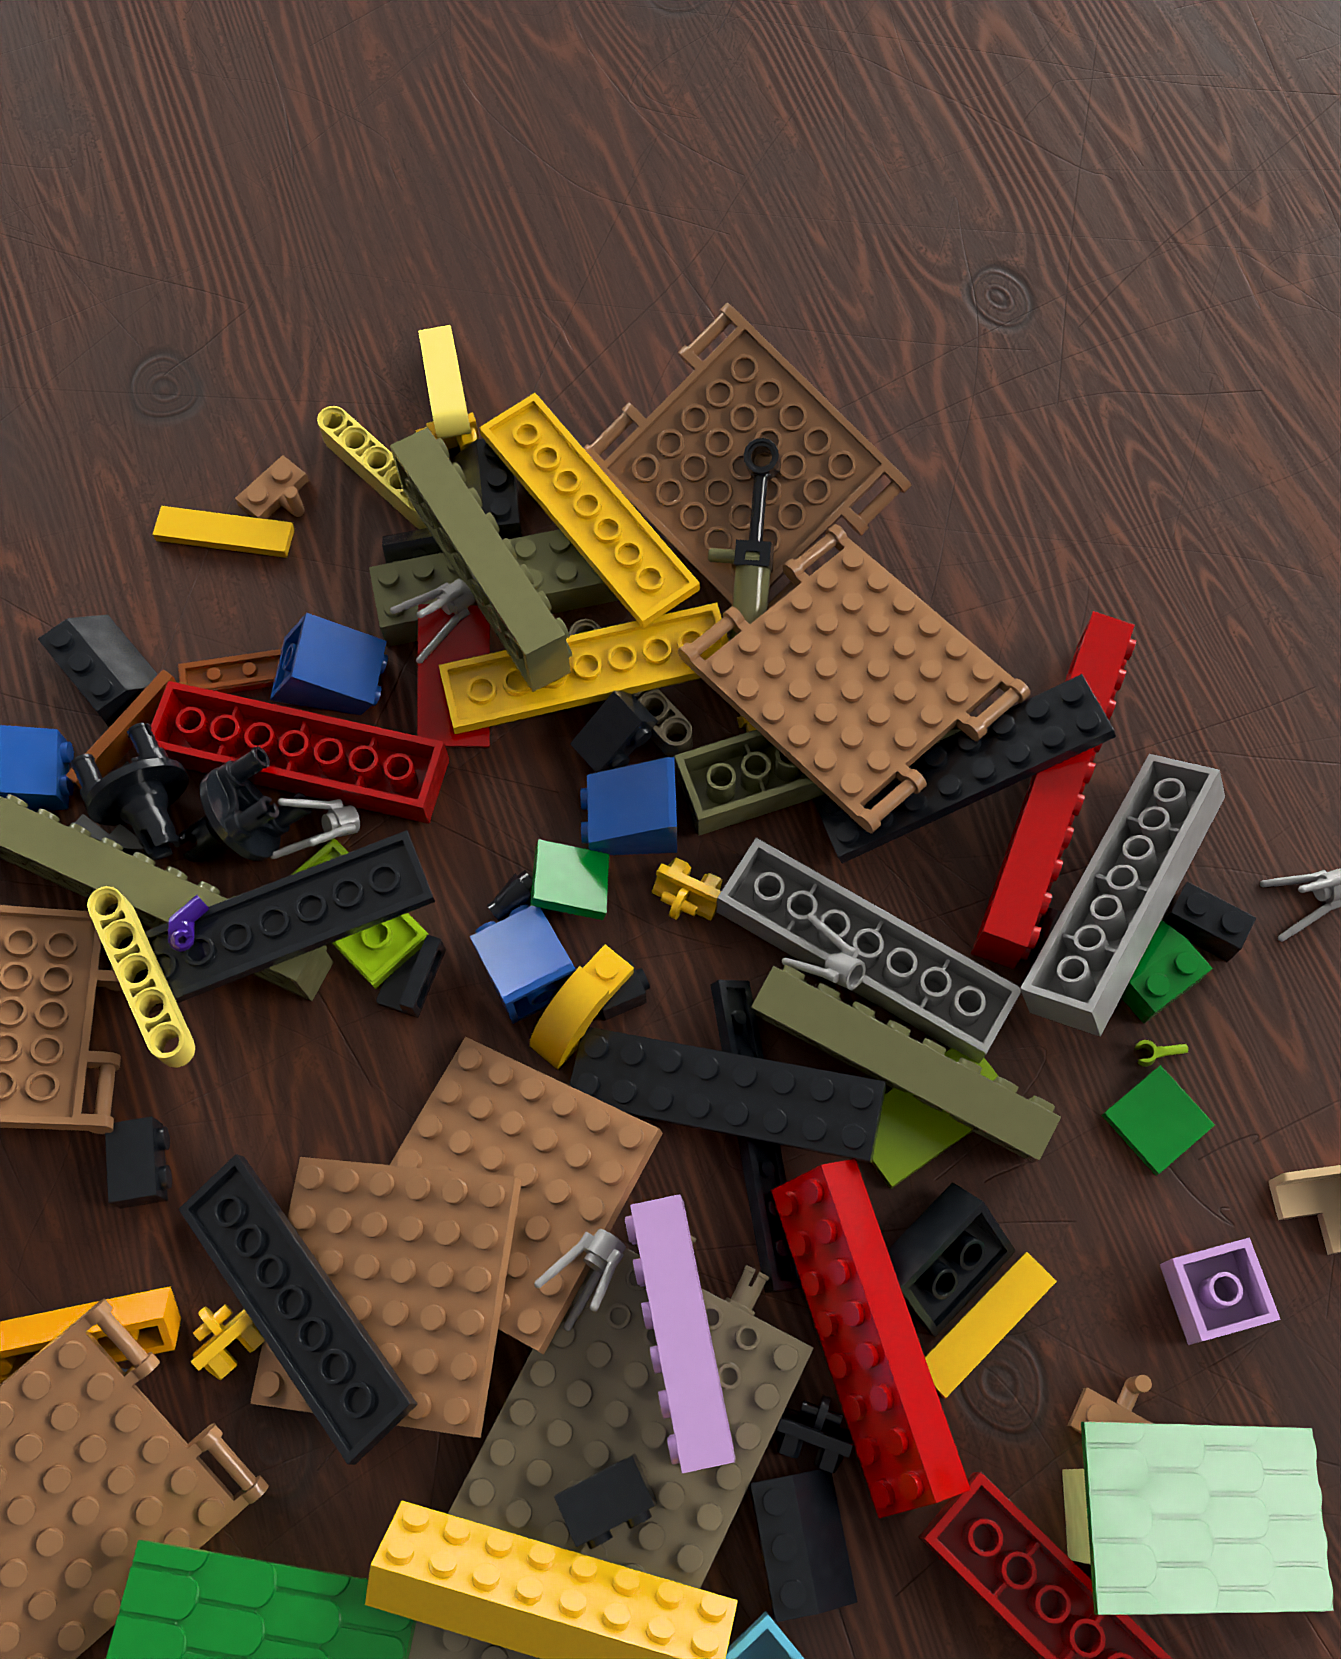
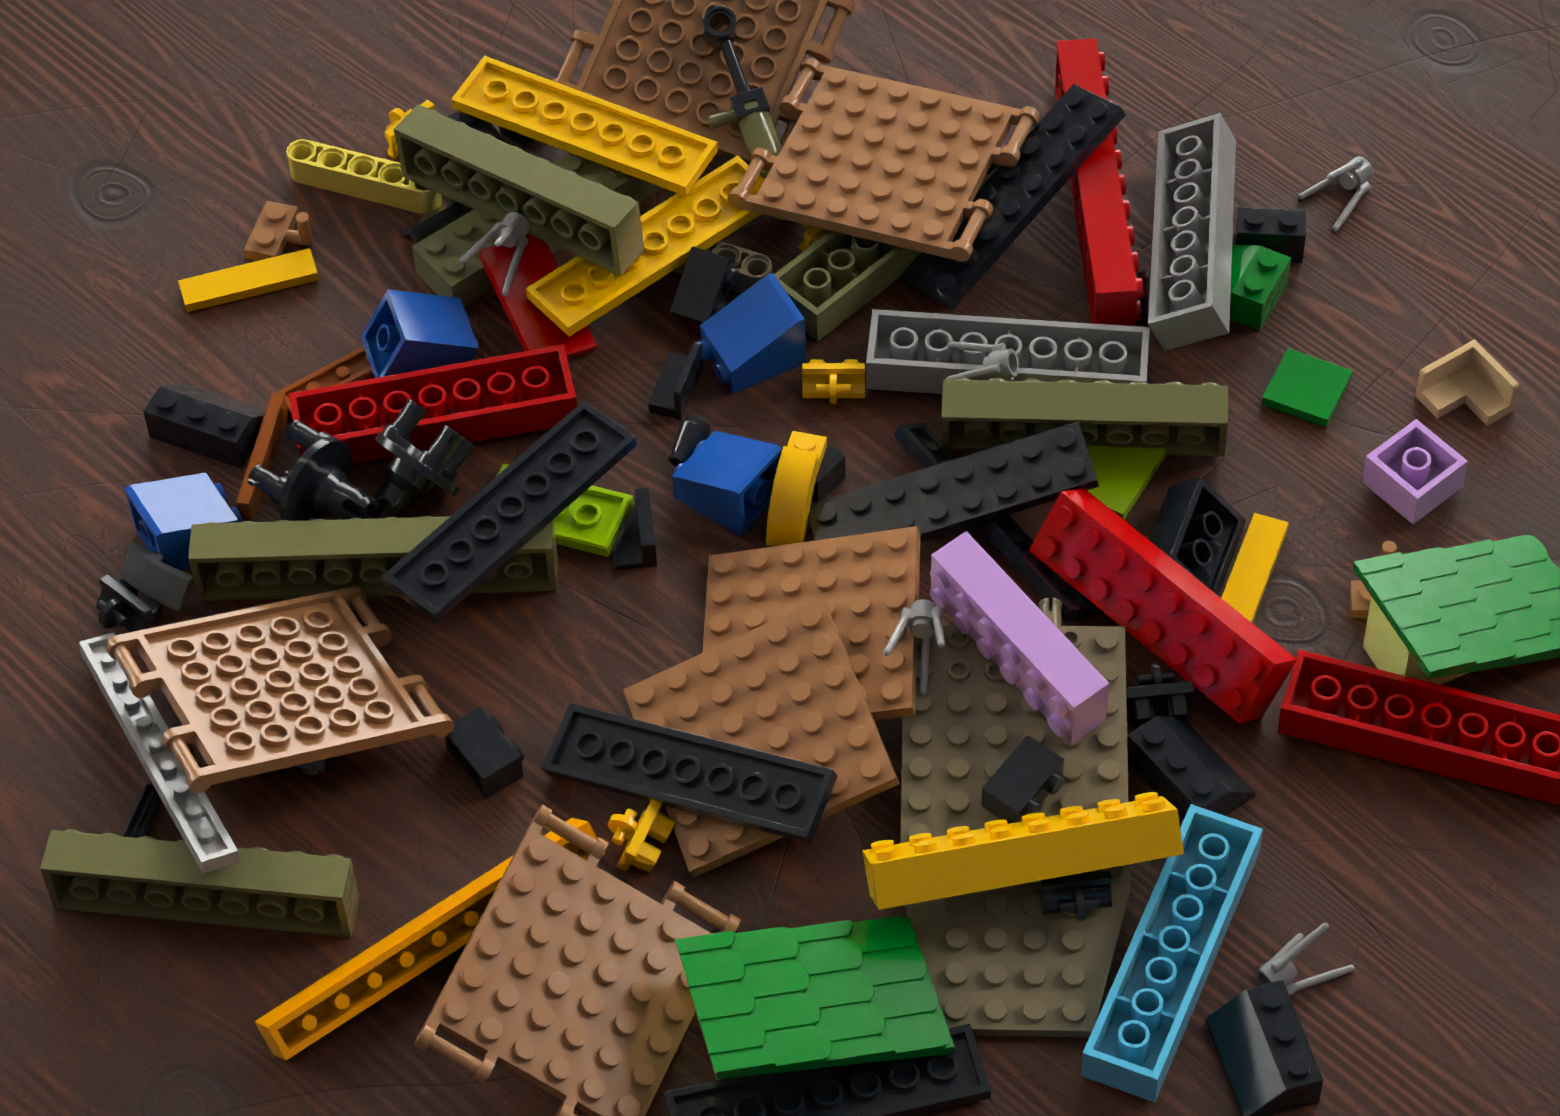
camera: 25 degrees left, 15 degrees down
(153, 988) = (429, 577): light yellow beam -> none
(182, 924) = (436, 531): dark purple arm -> none
(336, 823) = (499, 448): light grey plant -> none
(444, 382) = (384, 81): light yellow beam -> none
(540, 821) = (677, 383): none -> black panel
(570, 879) = (731, 407): tile -> none
(1159, 1051) = (1278, 342): lime hand -> none

